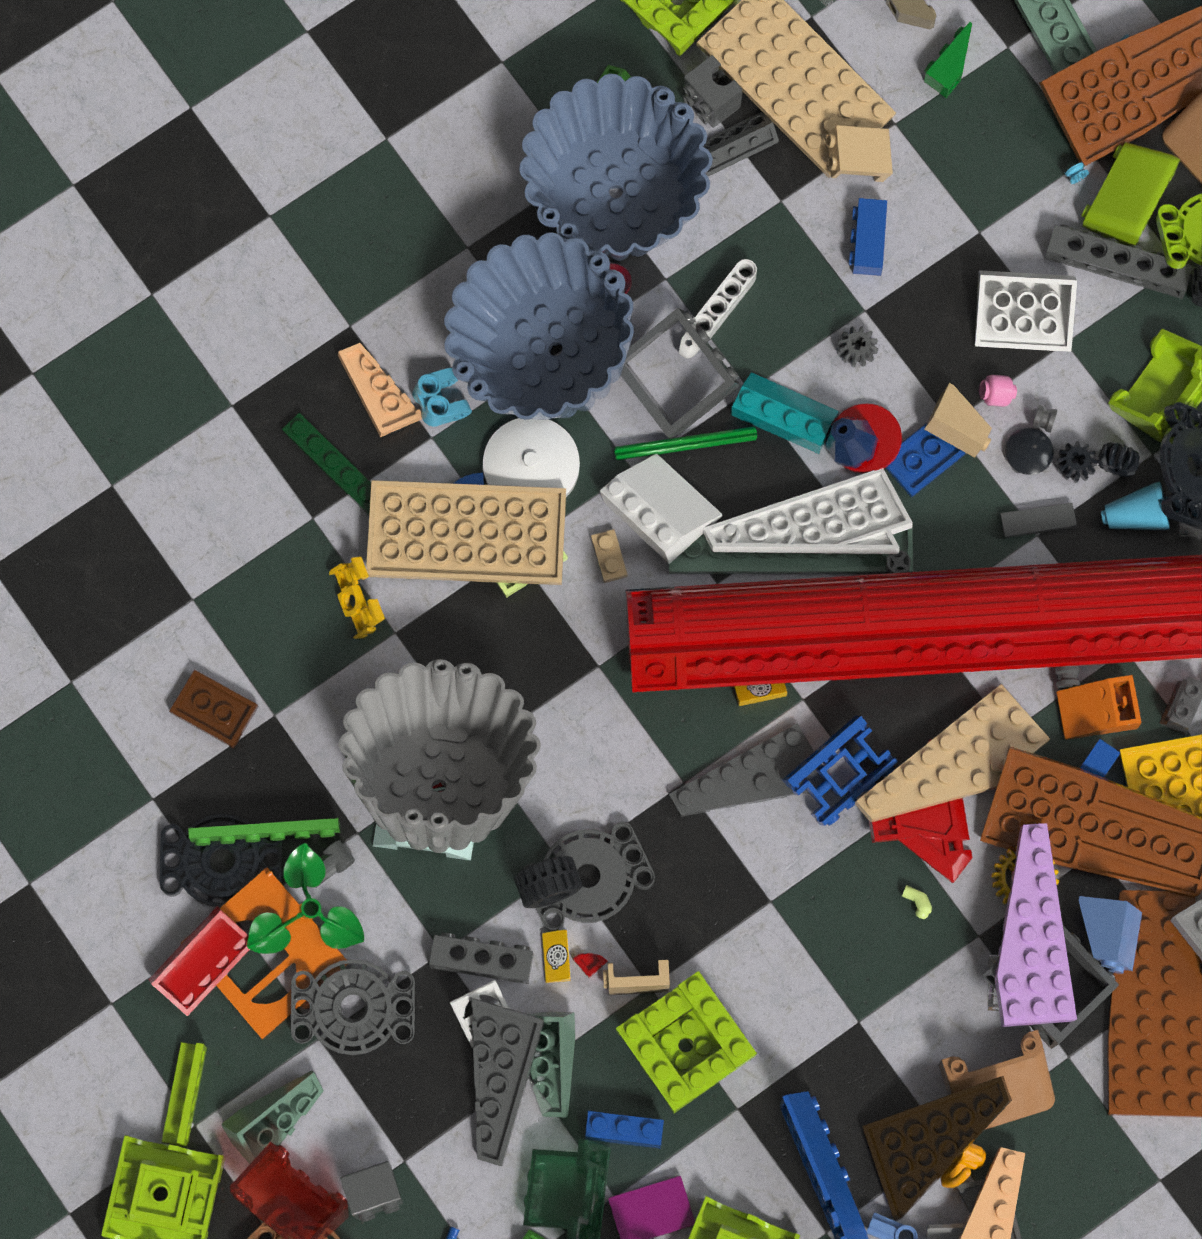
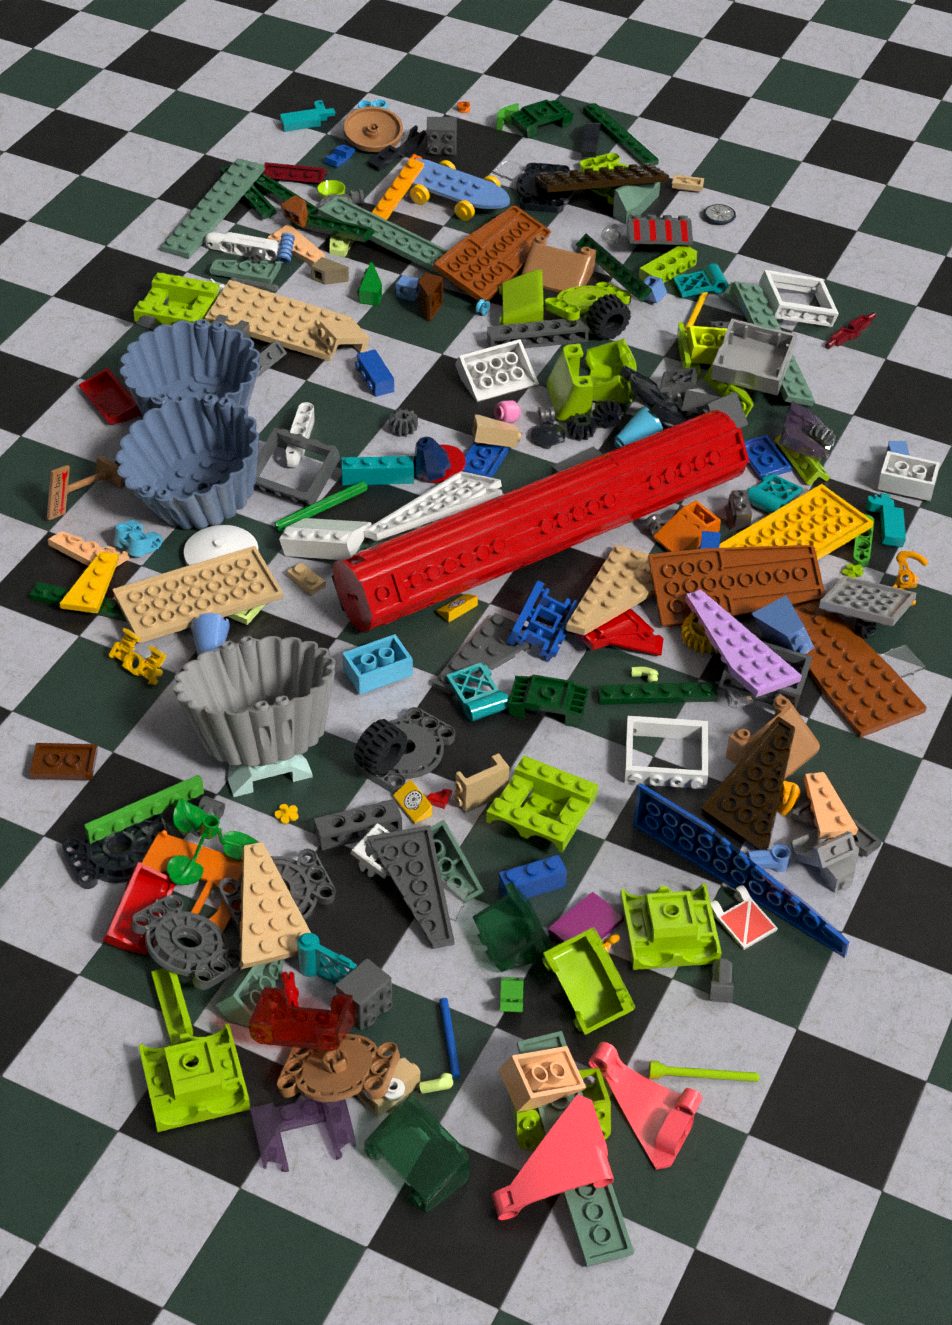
camera: 30 degrees left, 30 degrees down
(252, 1029) = (187, 961): none -> dark grey piece
(306, 1141) = (290, 988): none -> red pin
(325, 1047) = (269, 914): none -> tan wing
(343, 1115) = (313, 960): none -> teal piece
(353, 458) = (92, 585): none -> yellow wing
(378, 287) = (59, 484): none -> medium nougat piece
(417, 900) = (287, 813): none -> yellow plant
(446, 612) = (209, 631): none -> medium blue cone
(514, 109) = (110, 397): none -> red slope
(617, 742) = (377, 664): none -> medium azure brick
(713, 857) = (482, 702): none -> teal piece
(782, 888) = (548, 695): none -> dark green plate
(893, 997) = (667, 729): none -> white window
(915, 936) = (657, 693): none -> dark green plate
(997, 89) = (407, 288): none -> medium blue brick
(1014, 126) = (430, 295): none -> reddish brown slope
(1076, 418) = (565, 388): none -> lime windscreen

